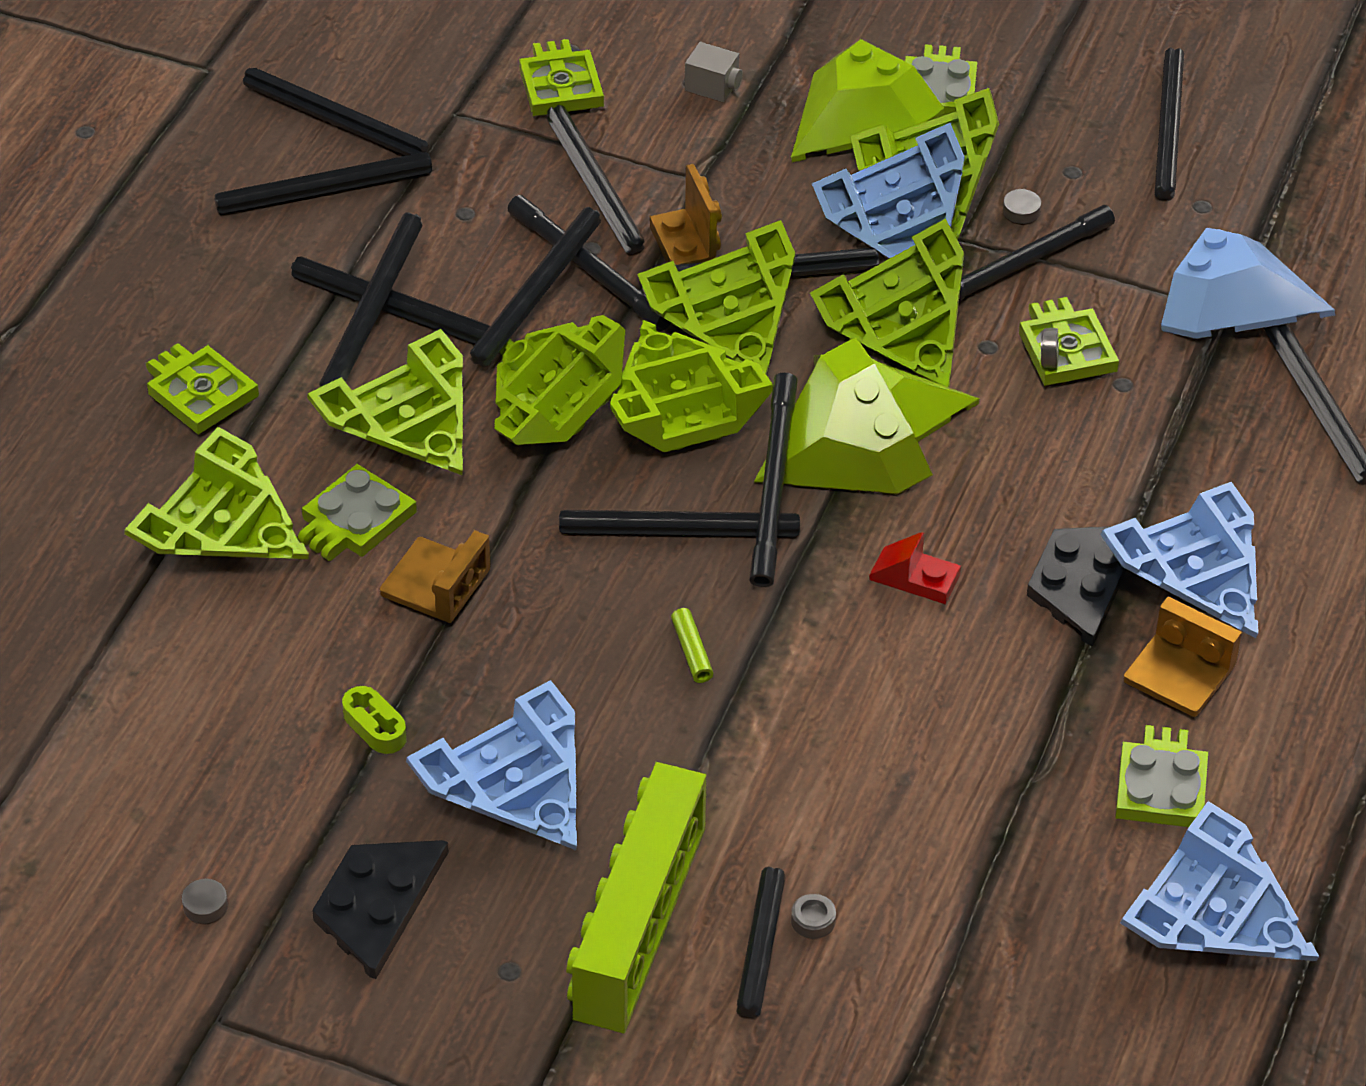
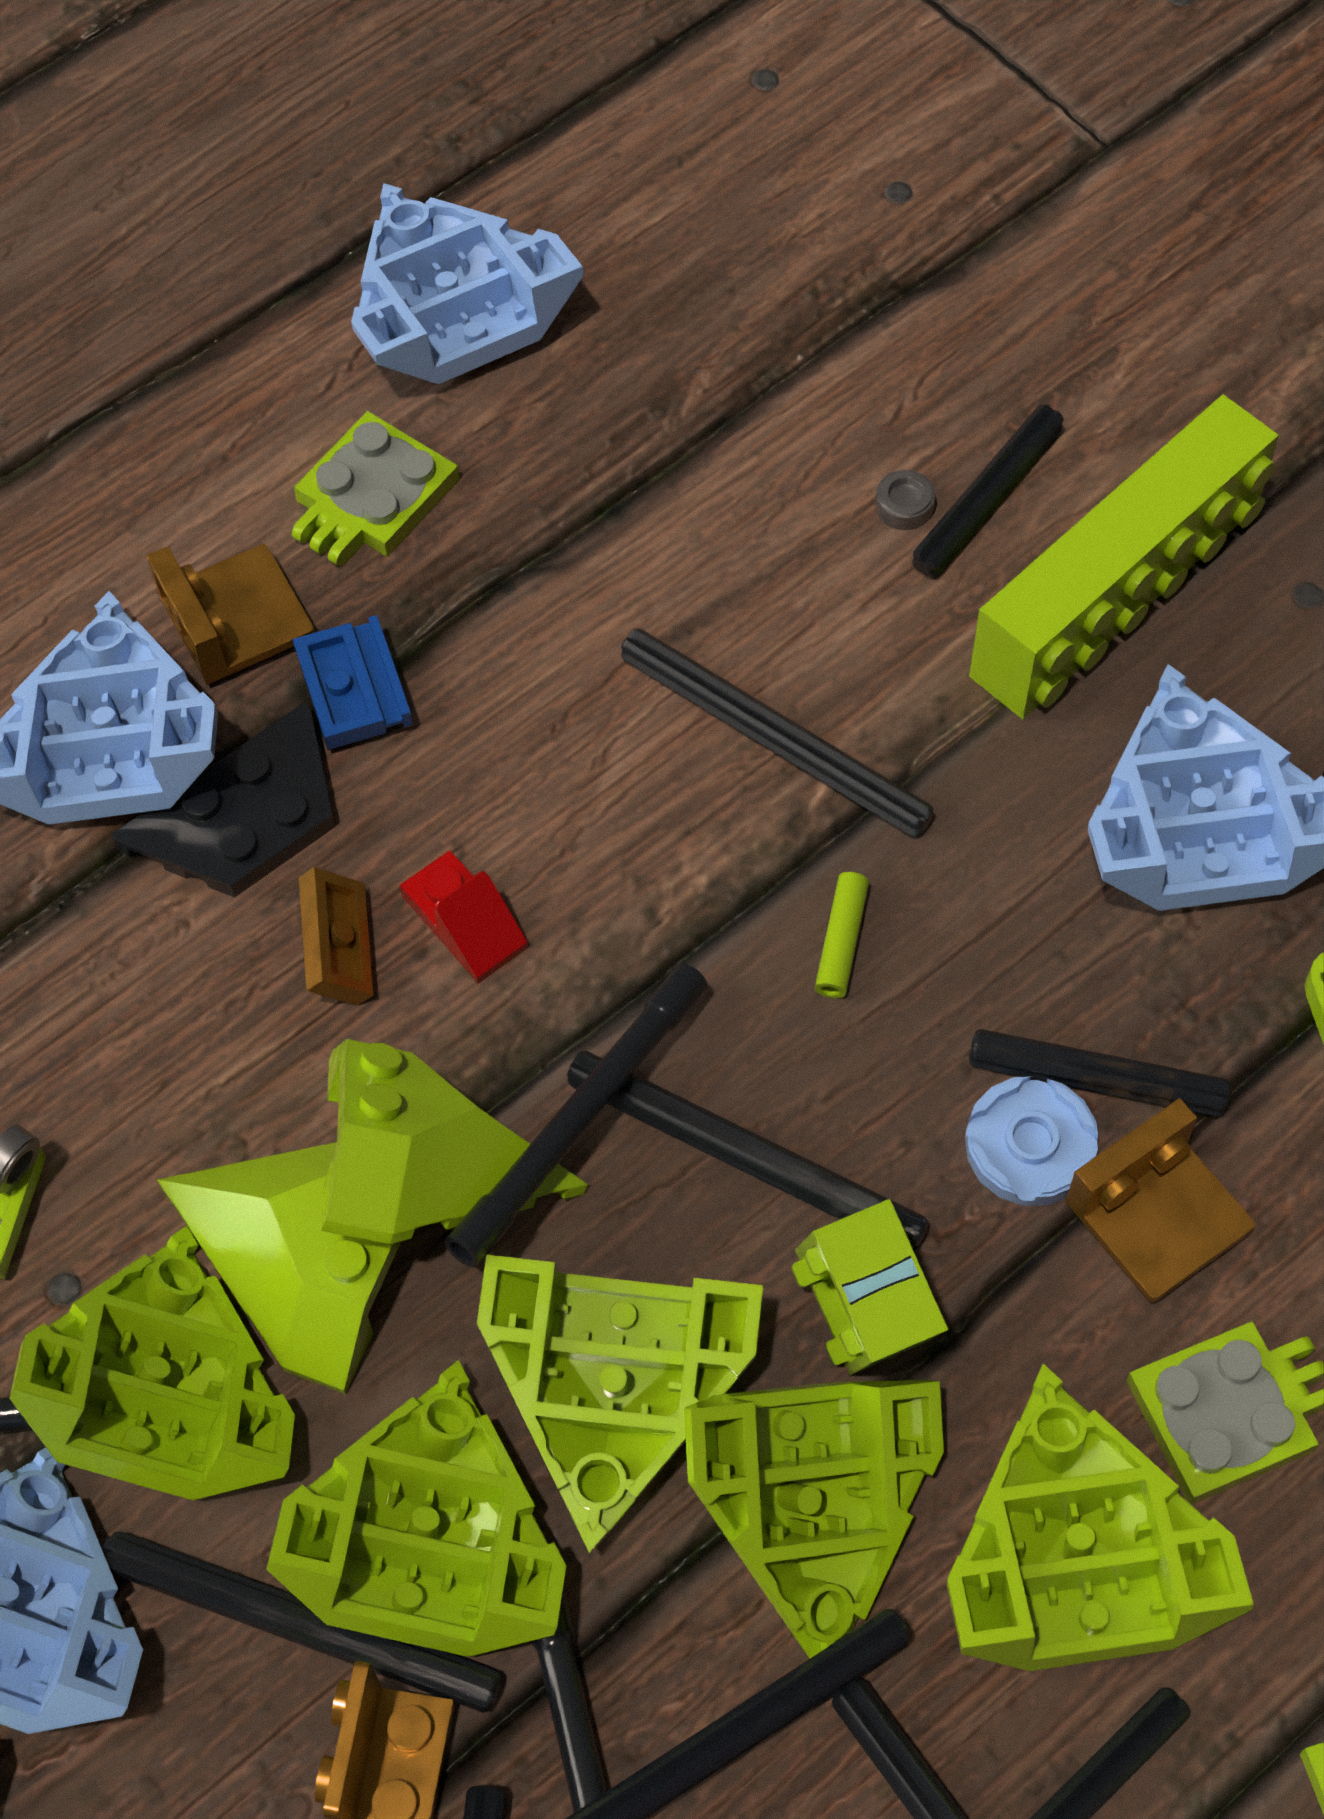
camera: 150 degrees left, 15 degrees up
(503, 633) = (1098, 1072): none -> black axle
(524, 590) = (1030, 1140): none -> light blue tile
(569, 453) = (868, 1288): none -> lime container
(804, 736) = (777, 732): none -> black axle
(974, 524) = (335, 936): none -> pearl gold plate
(1075, 656) = (352, 682): none -> blue plate

